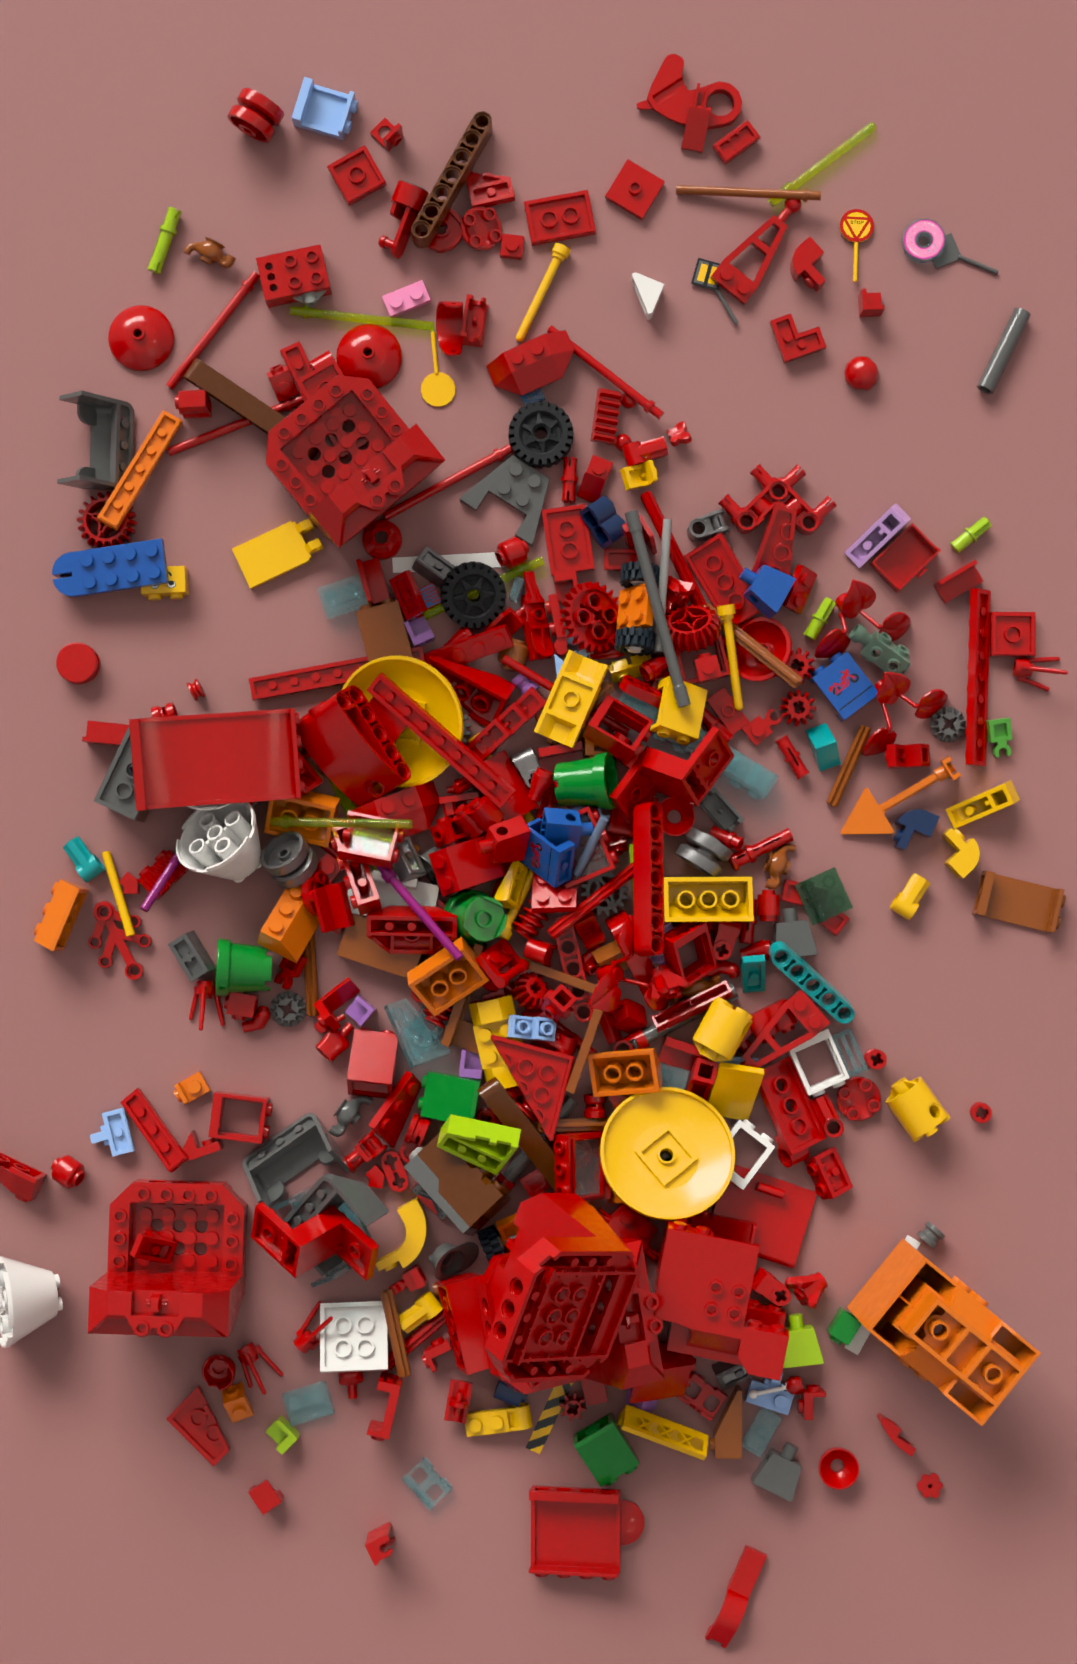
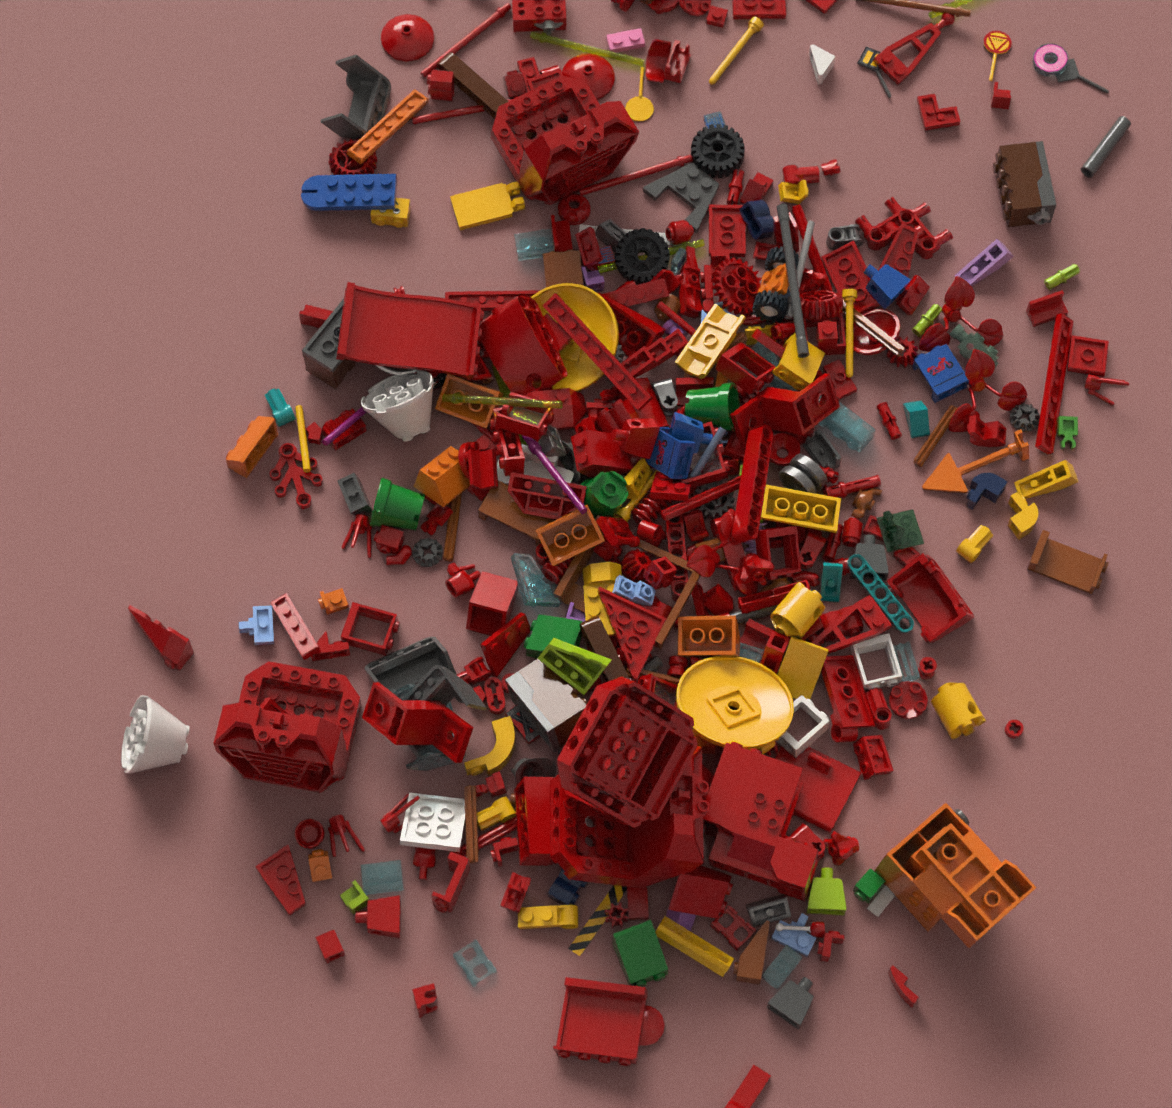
camera: 10 degrees right, 20 degrees down
(68, 1171) = (213, 649): red head -> none
(78, 663) = (307, 261): red head -> none
(289, 859) = (452, 428): flat silver wheel -> none
(316, 1452) = (382, 916): none -> red torso
(333, 1000) = (469, 549): red bracket -> none
(348, 1113) = (463, 641): dark grey piece -> none
(360, 1010) = (490, 561): medium lavender panel -> none
(417, 1130) = (520, 660): red wheel -> none
(532, 363) = (718, 97): red wedge -> none
(540, 783) = (673, 401): red cone -> none
(606, 417) = (773, 146): red gear -> none
(649, 406) = (808, 141): red bar -> none
(759, 728) = (864, 397): red plate -> none
(803, 263) = (951, 60): red brick -> none
(805, 707) = (898, 377): red gear -> none
(838, 1479) = (850, 996): red piece -> none
(861, 373) = (986, 145): red hair -> none
(871, 974) = (930, 598): none -> red windscreen
(905, 558) = (1004, 285): red container -> none
(914, 423) = (1024, 184): none -> reddish brown piece
(933, 1490) = (933, 1039): red plant -> none

